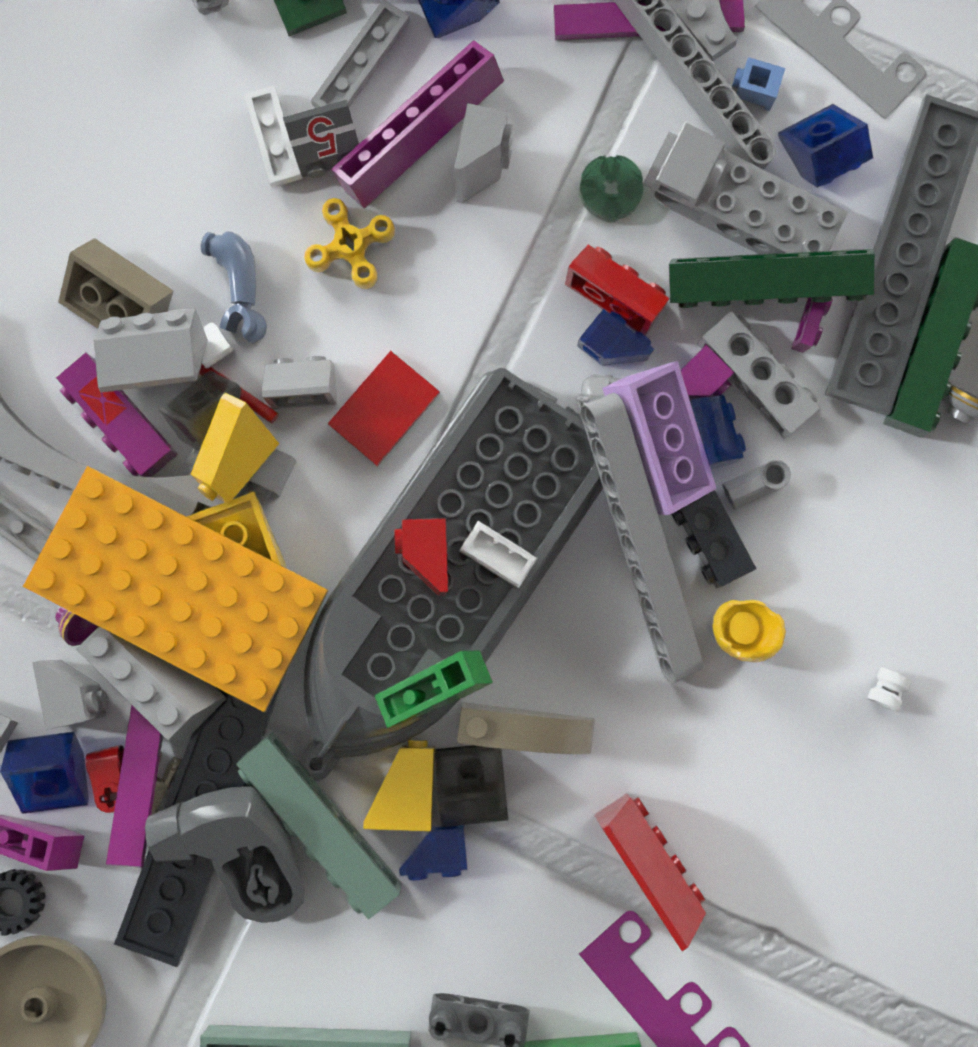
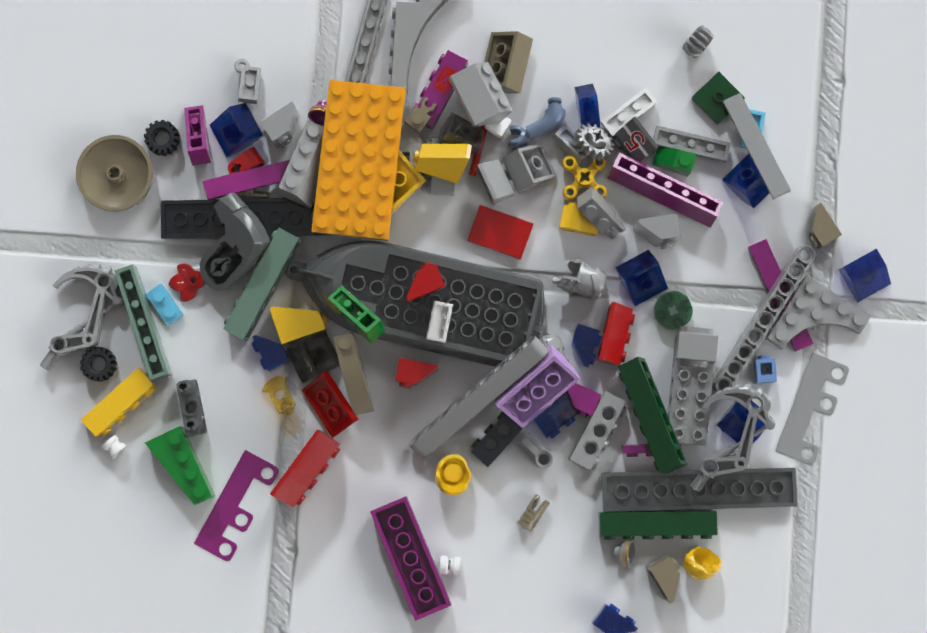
camera: 70 degrees right, 0 degrees up
(146, 463) = (419, 117): none -> dark tan plate
(237, 195) = (587, 105): none -> clear blue slope
(266, 953) = (184, 282): none -> red plate
(289, 1000) = (164, 304): none -> medium azure plate
(291, 239) = (565, 139): none -> light grey hinge
(298, 204) = (594, 142): none -> light grey gear
(298, 323) = (529, 167): none -> light grey slope
(378, 93) = (674, 160): none -> green slope
(412, 280) = (575, 221): none -> yellow slope
(413, 239) = (599, 212): none -> light grey hinge
(492, 863) = (272, 387): none -> clear yellow piece
(511, 305) = (584, 280): none -> light grey helmet
(541, 214) = (641, 277): none -> clear blue slope
(559, 630) = (413, 372): none -> red slope
(559, 787) = (330, 404): none -> red tile
(857, 530) = (531, 517): none -> dark tan hinge
(858, 748) = (411, 558): none -> magenta brick
(886, 187) = (723, 460): none -> light grey piece

